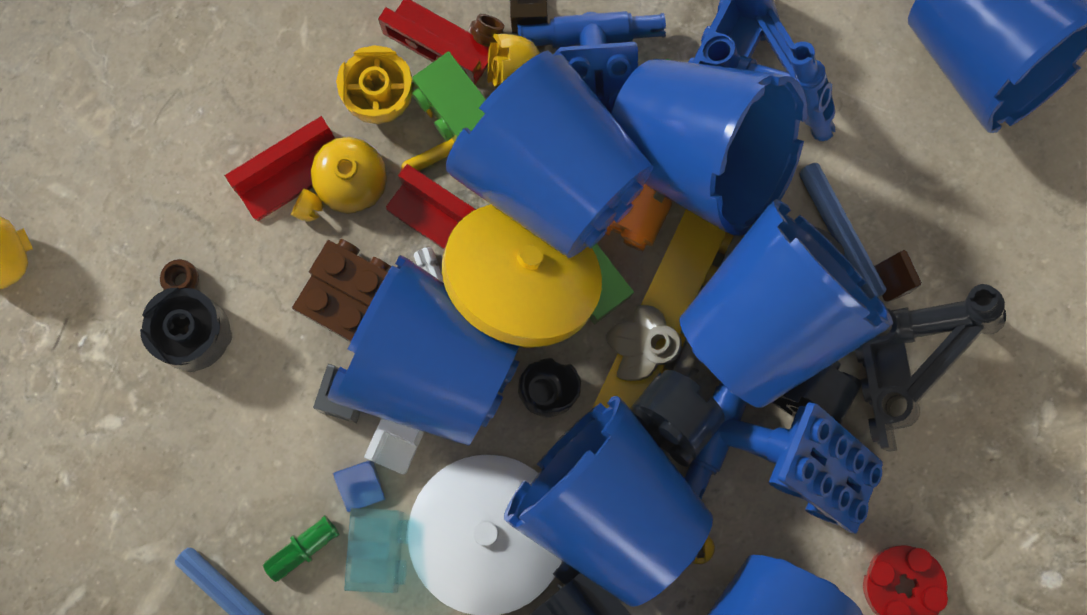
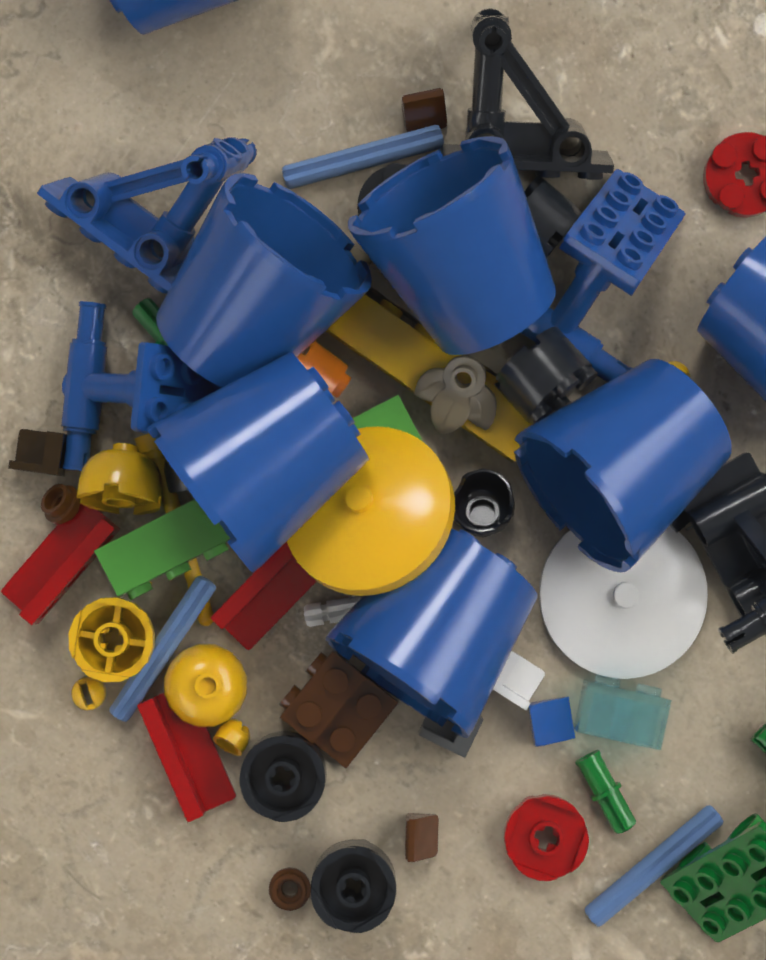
camera: 85 degrees left, 10 degrees up
(238, 384) = (421, 836): none -> reddish brown slope
(239, 480) = (557, 859): none -> red plate
(256, 256) = (273, 797): none -> black brick
(328, 87) = (96, 690): none -> yellow hinge
(377, 134) = (165, 646): none -> medium blue axle

